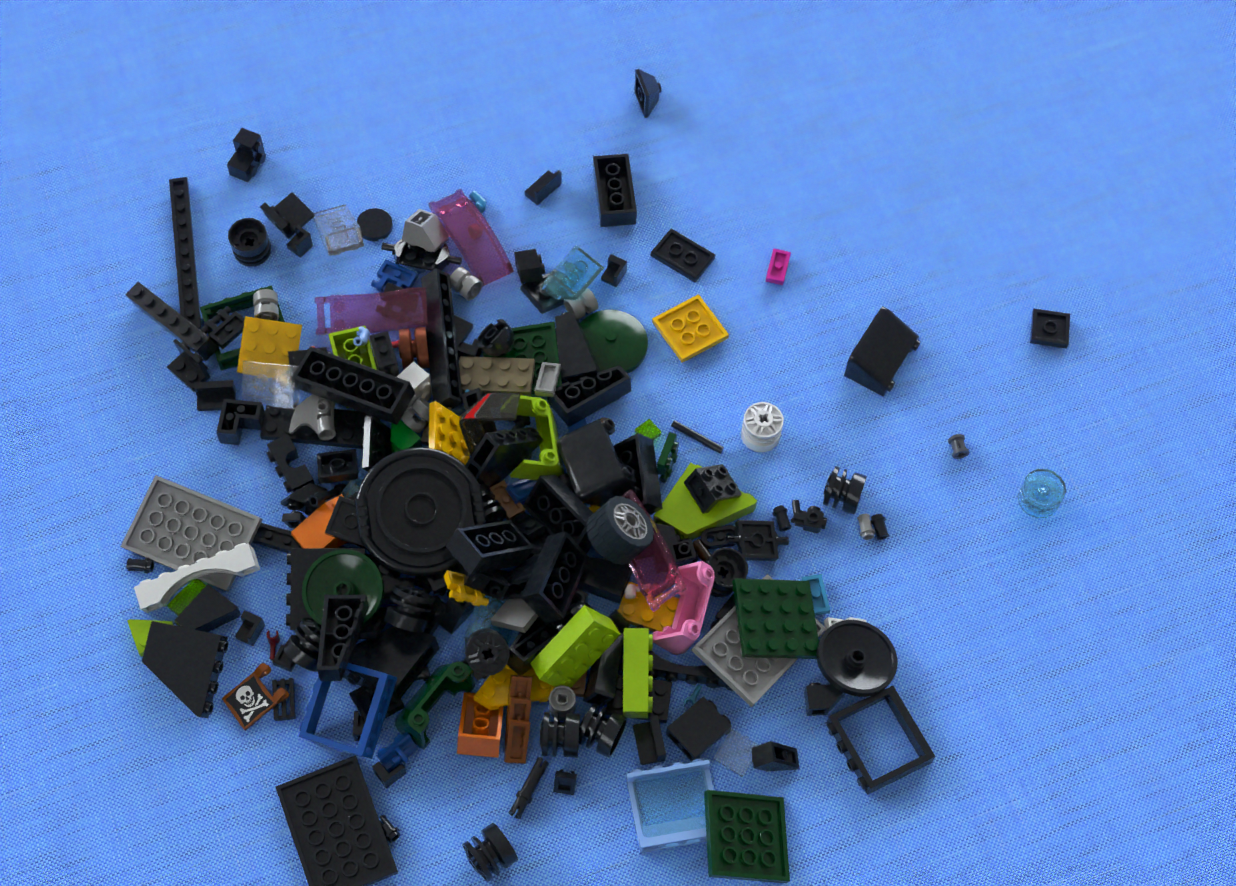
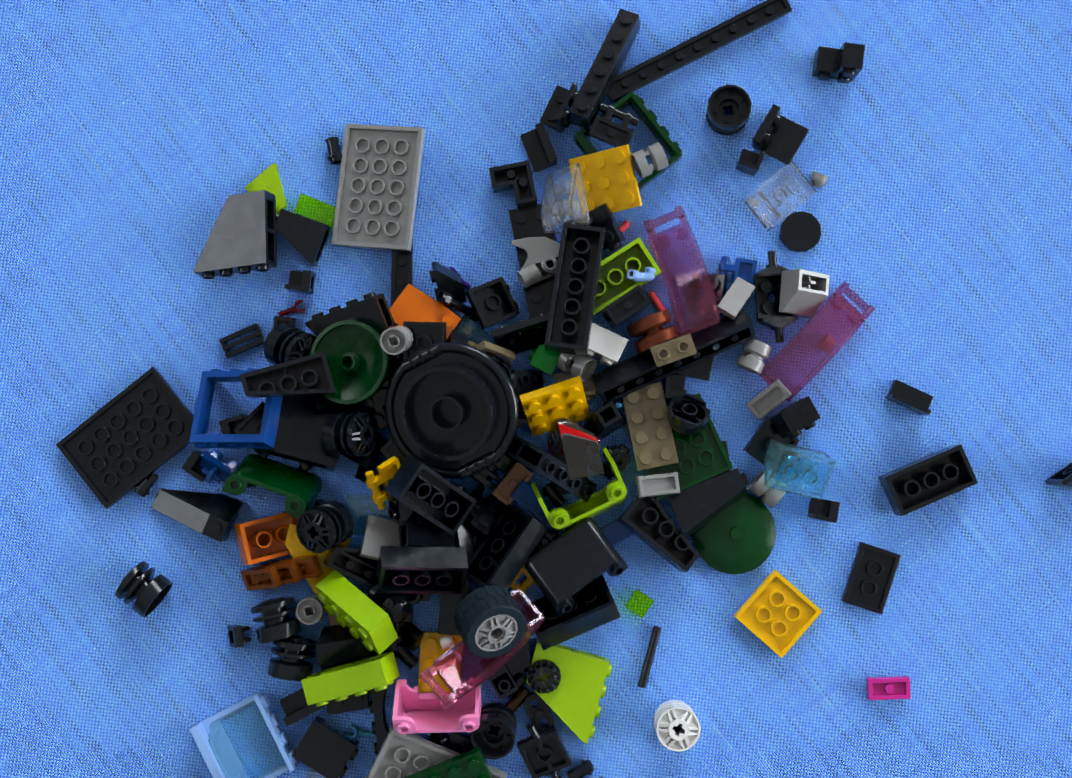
camera: 80 degrees right, 25 degrees up
(157, 592) = (353, 243): white arch -> none
(252, 699) = (231, 310): flag -> none
(283, 453) = (493, 239): black arch -> none
(293, 519) = (424, 282): black plate -> none
(336, 198) = (818, 180): none -> light grey hinge
(339, 535) = (396, 340): none -> light grey wheel
(410, 277) = (735, 298): none -> light grey tile
(435, 328) = (673, 350): none -> dark tan bracket
(435, 781) = (203, 512): none -> black wedge
(480, 202) = (866, 335): dark azure arm -> none
(506, 283) = (768, 399): none -> light grey tile
(524, 796) = (214, 601): black pin -> none
(667, 457) = (618, 637): dark green plate -> none
(680, 521) = (535, 672): none -> black gear
(711, 485) = (583, 695): black bracket -> none

